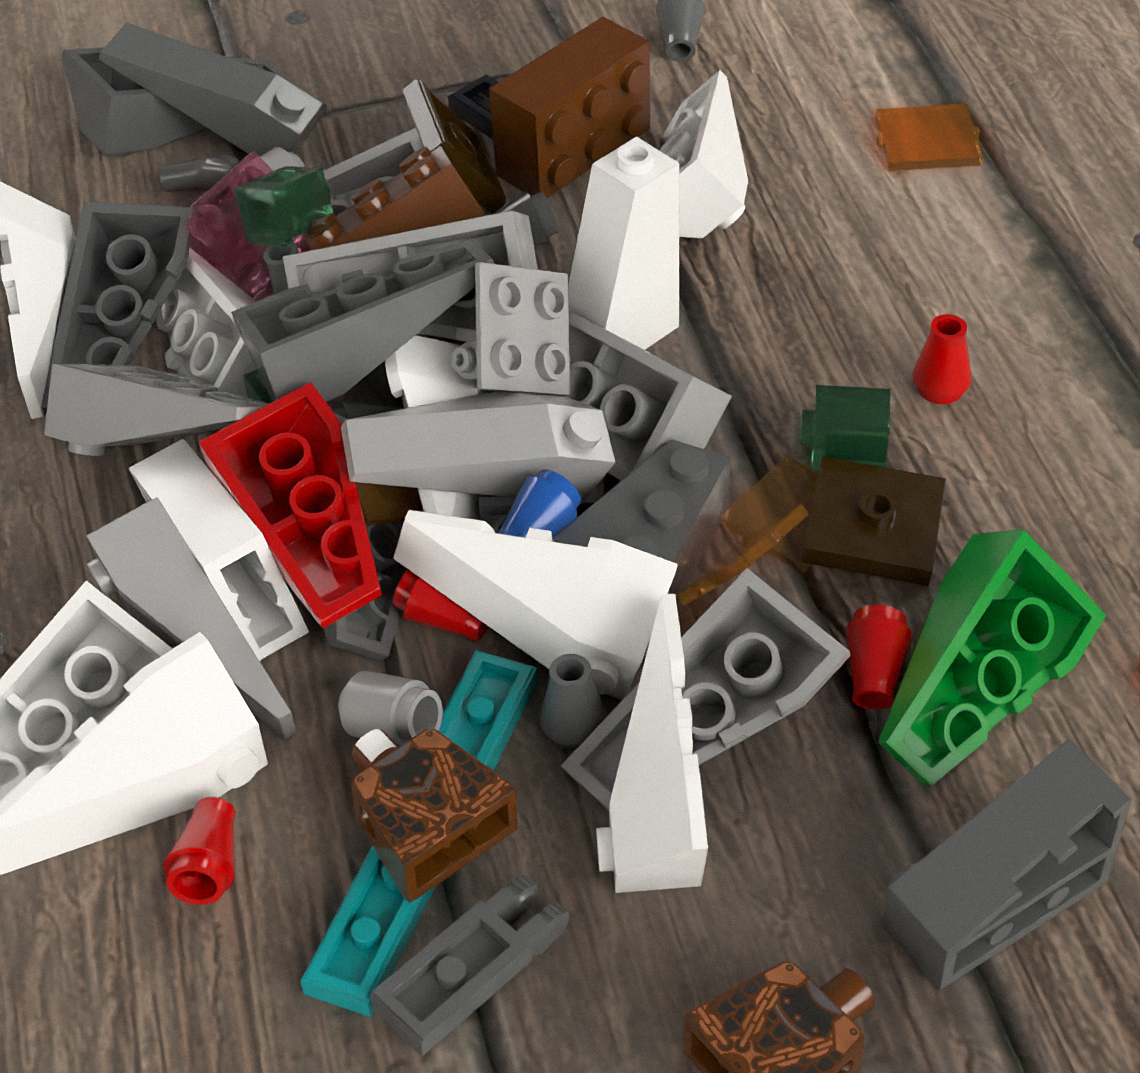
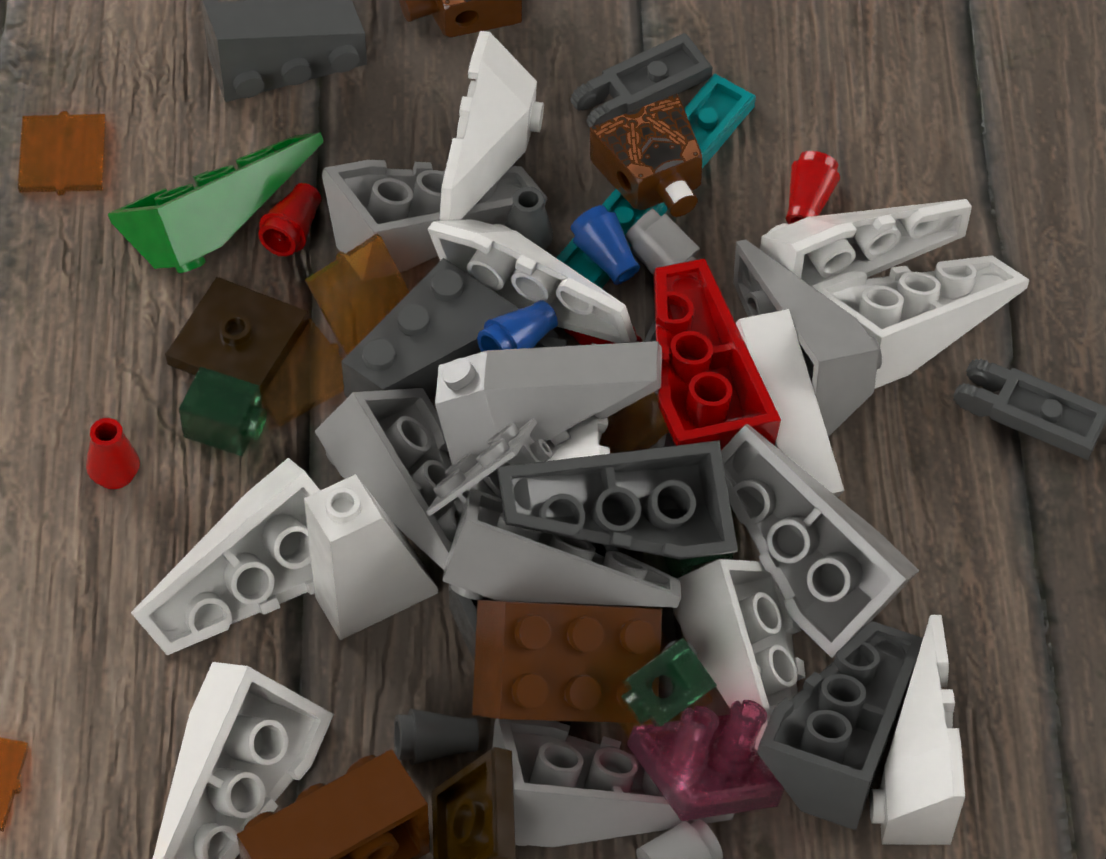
camera: 170 degrees left, 10 degrees up
(466, 685) = (604, 242): none -> blue cone
(751, 323) = (239, 567): none -> white wedge

